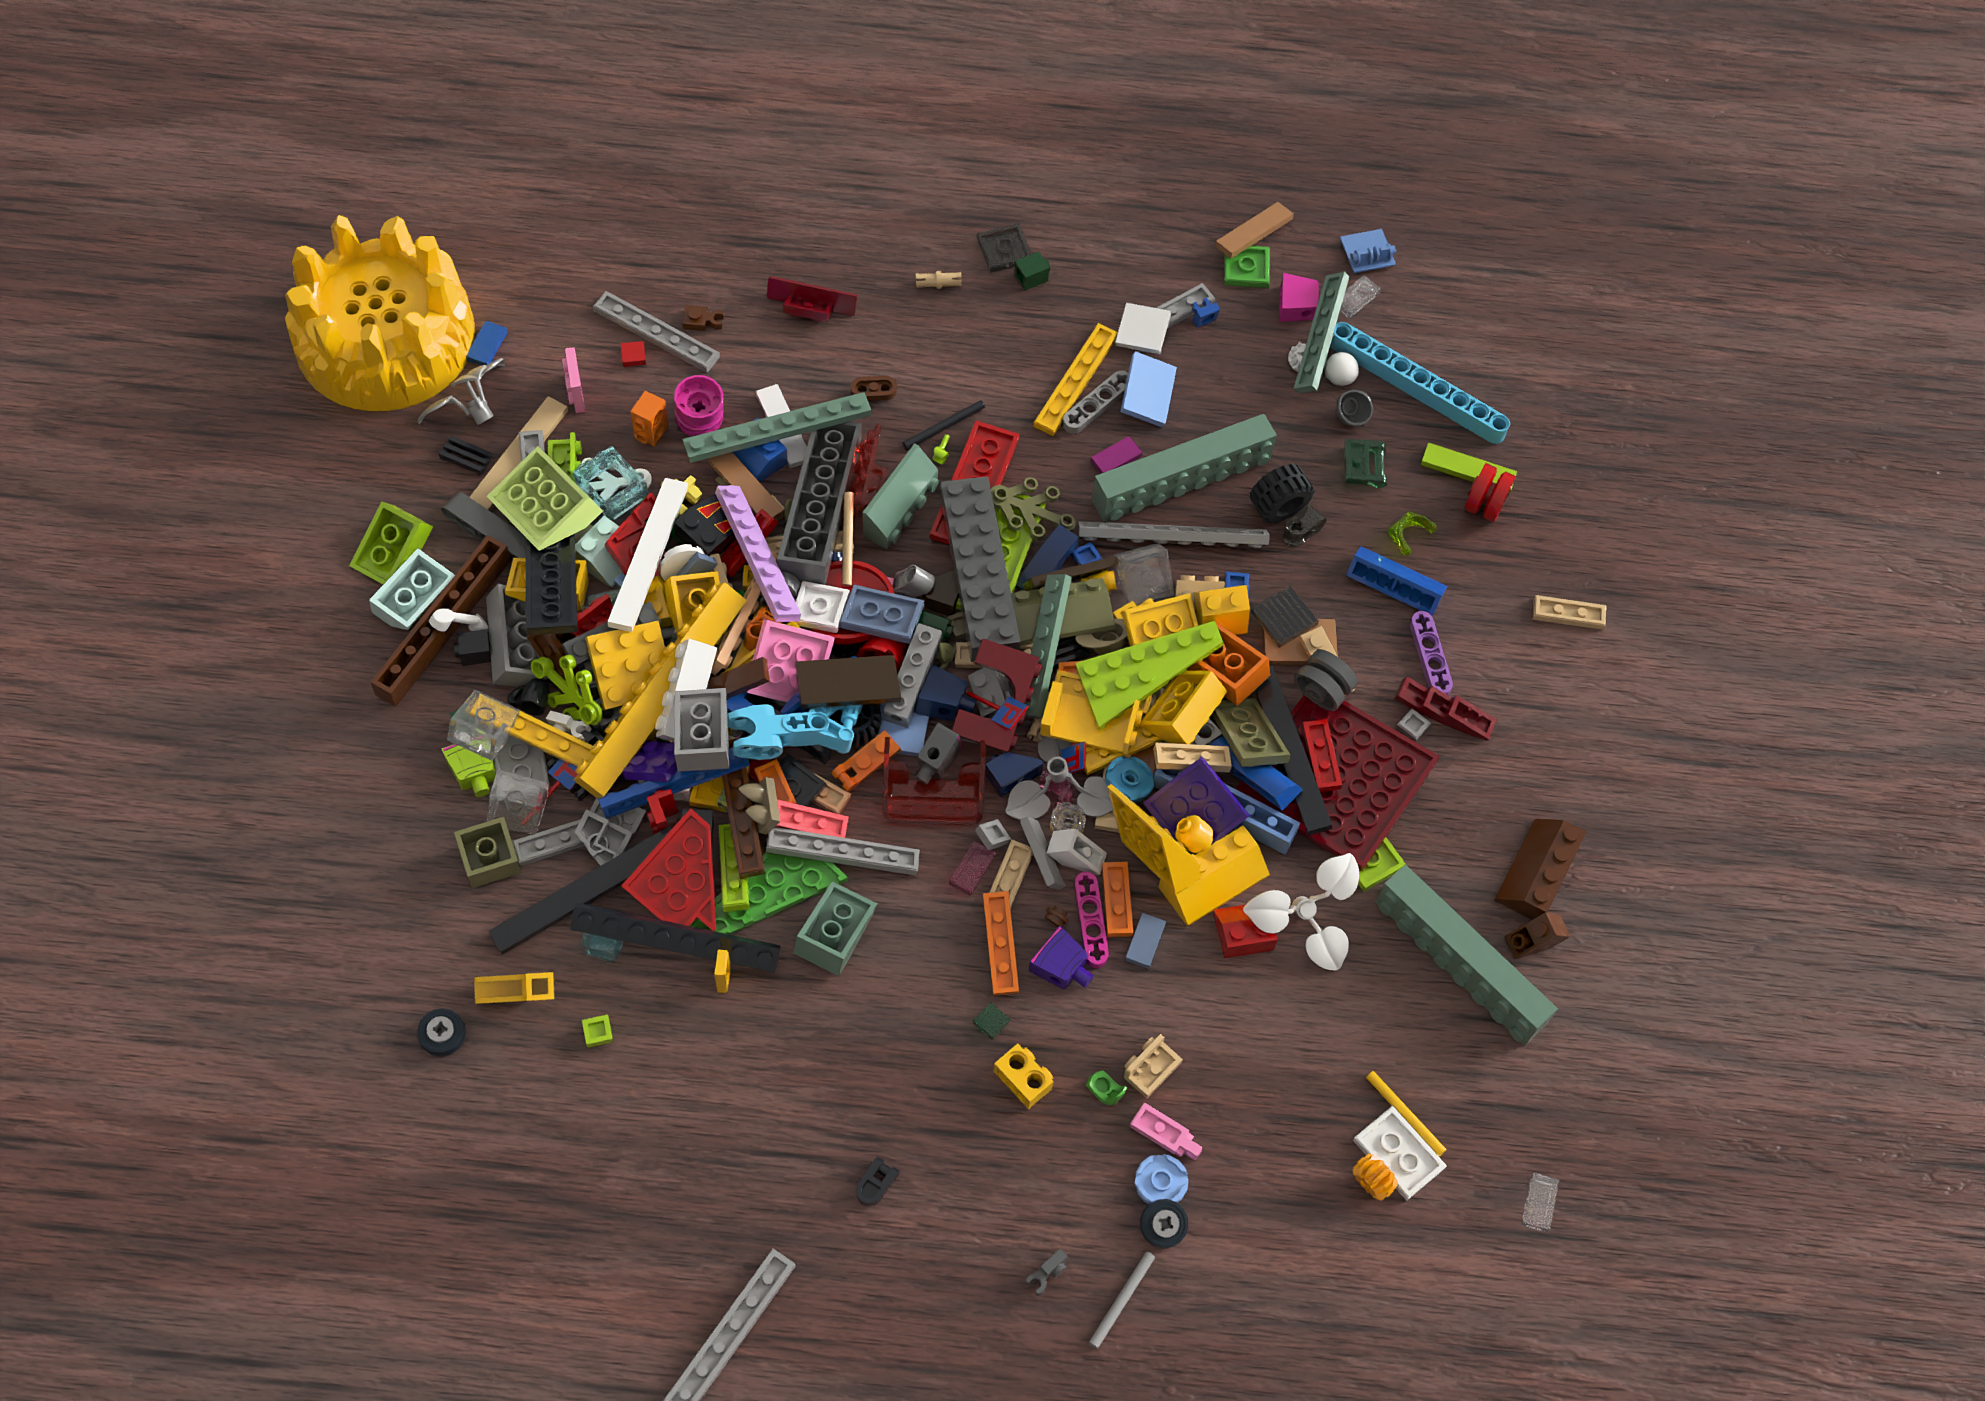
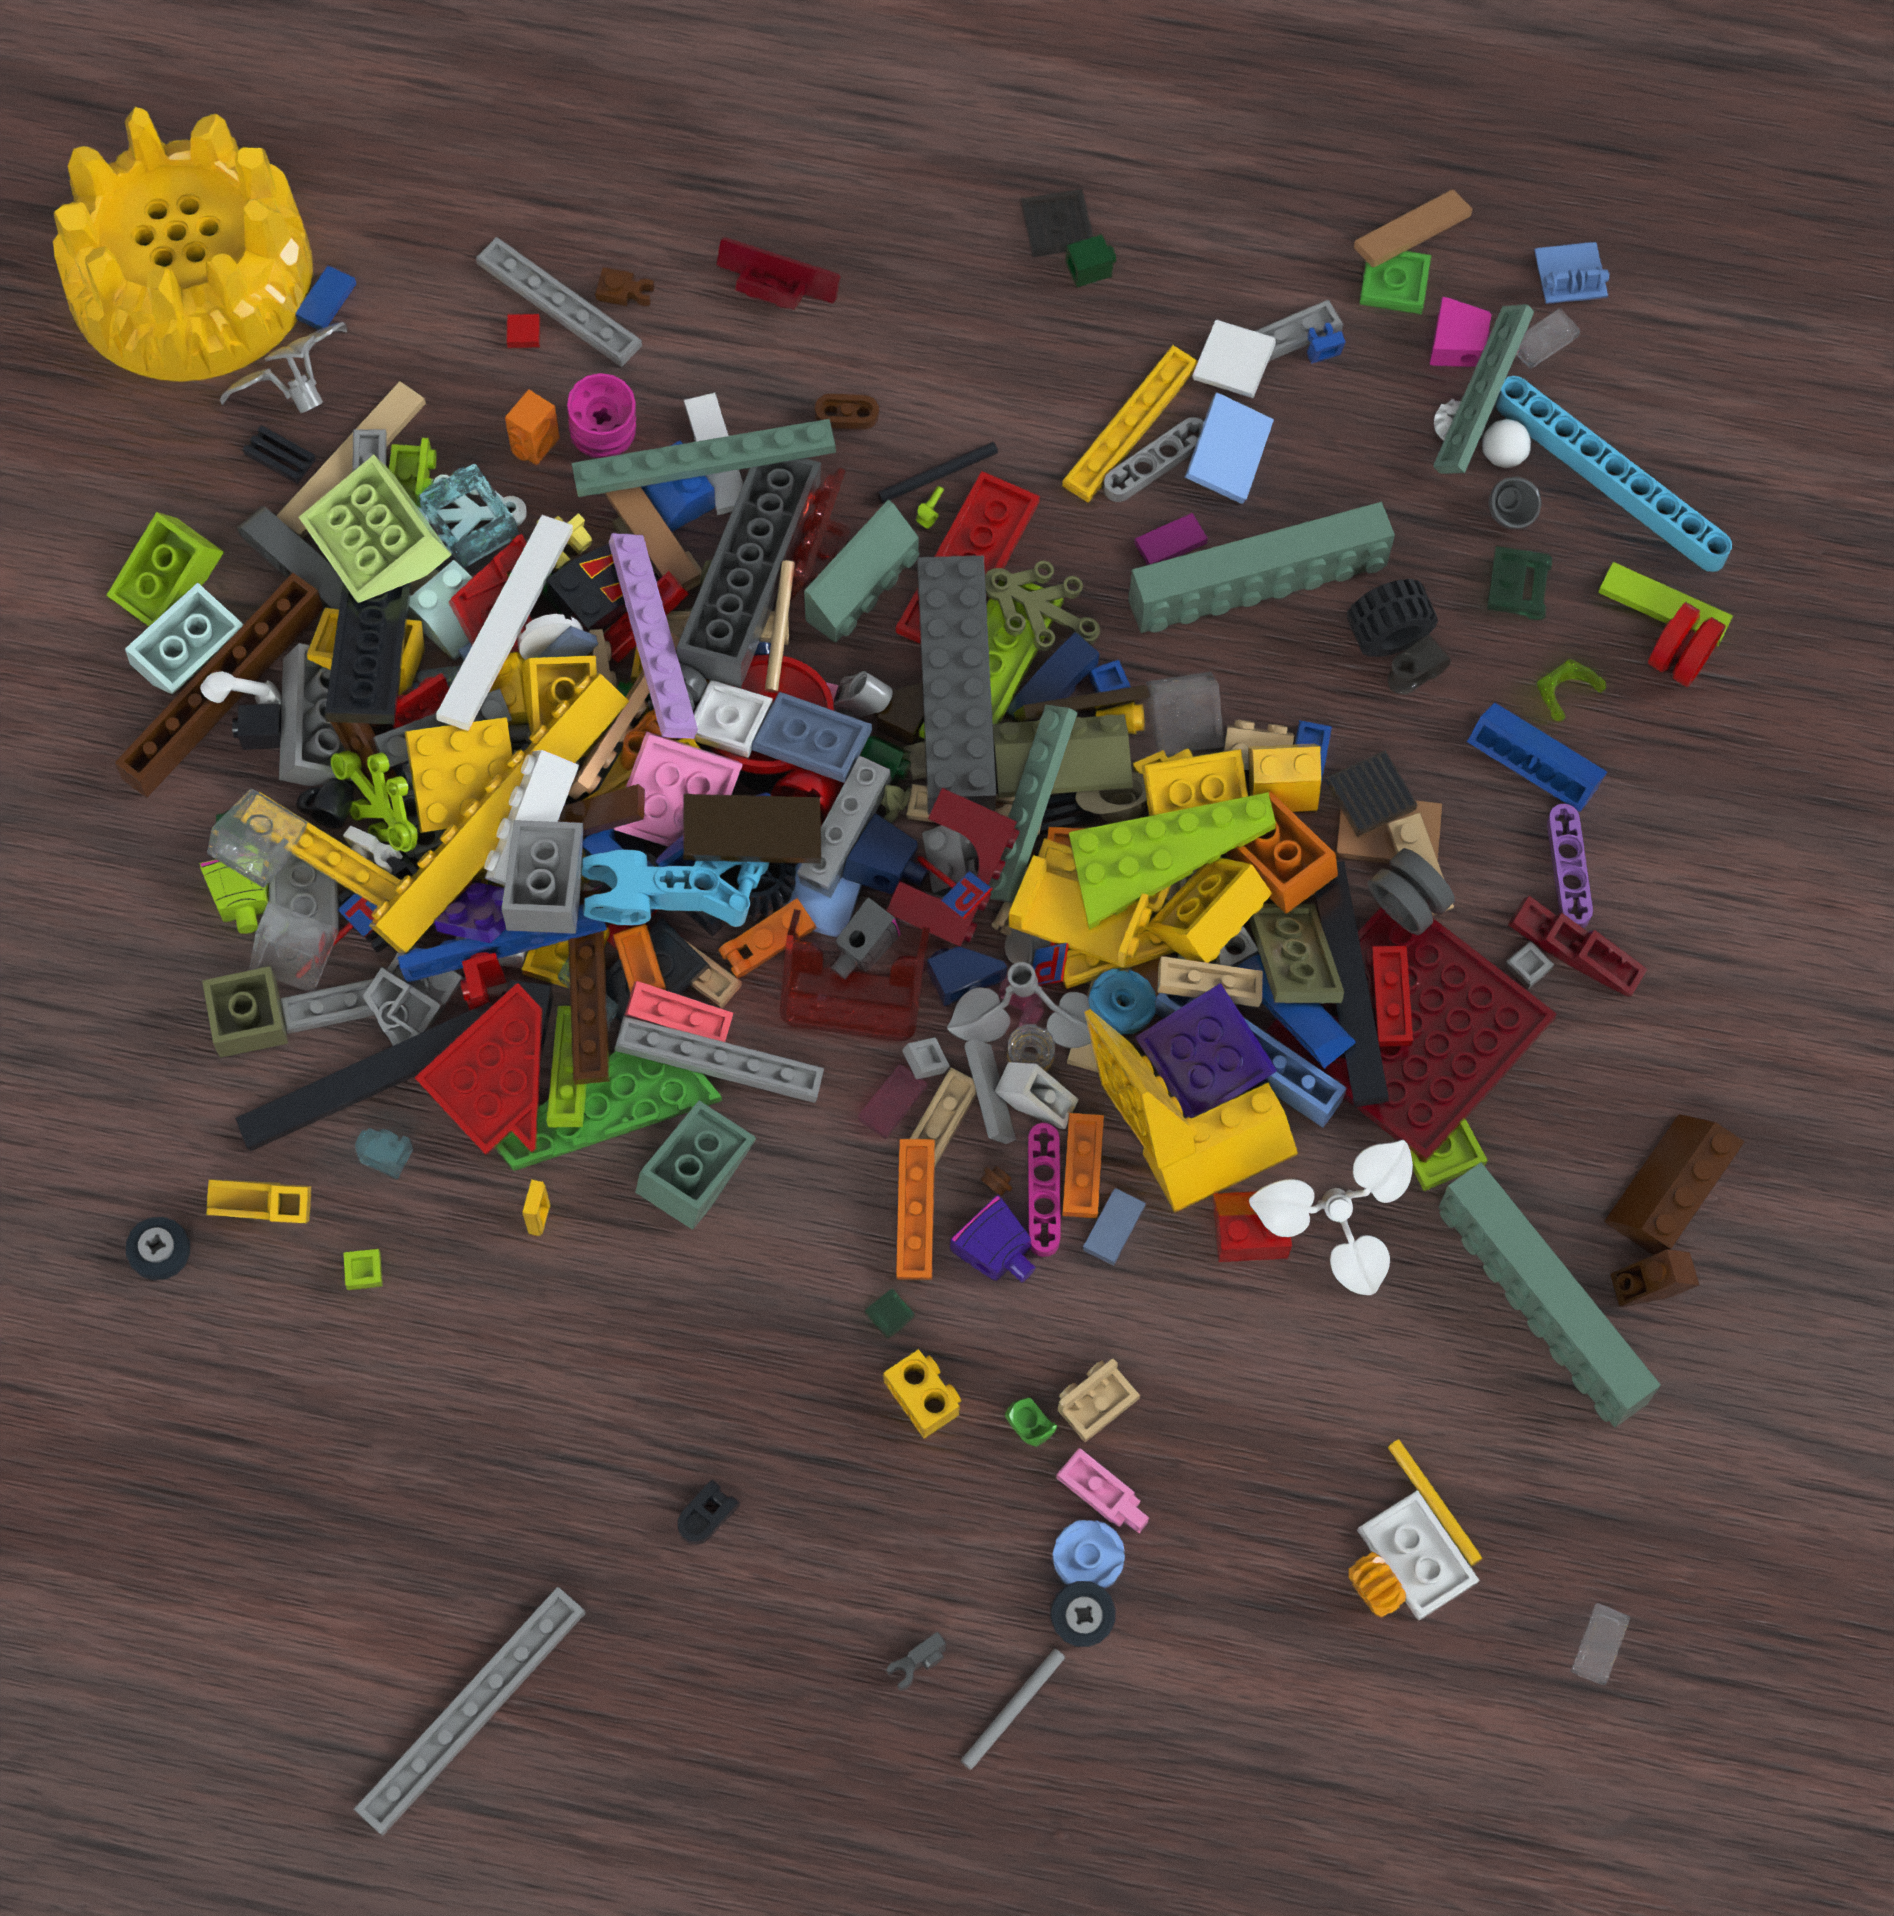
camera: 10 degrees right, 5 degrees up
(572, 380) = (436, 363): bright pink plate -> none
(673, 937) = (477, 1154): black plate -> none
(765, 808) = (620, 994): dark tan tile -> none
(938, 280) = (958, 262): tan pin -> none
(1181, 534) = (1246, 661): light grey plate -> none
(1194, 834) = (1197, 1088): yellow head -> none
(1569, 612) = (1775, 826): tan tile -> none

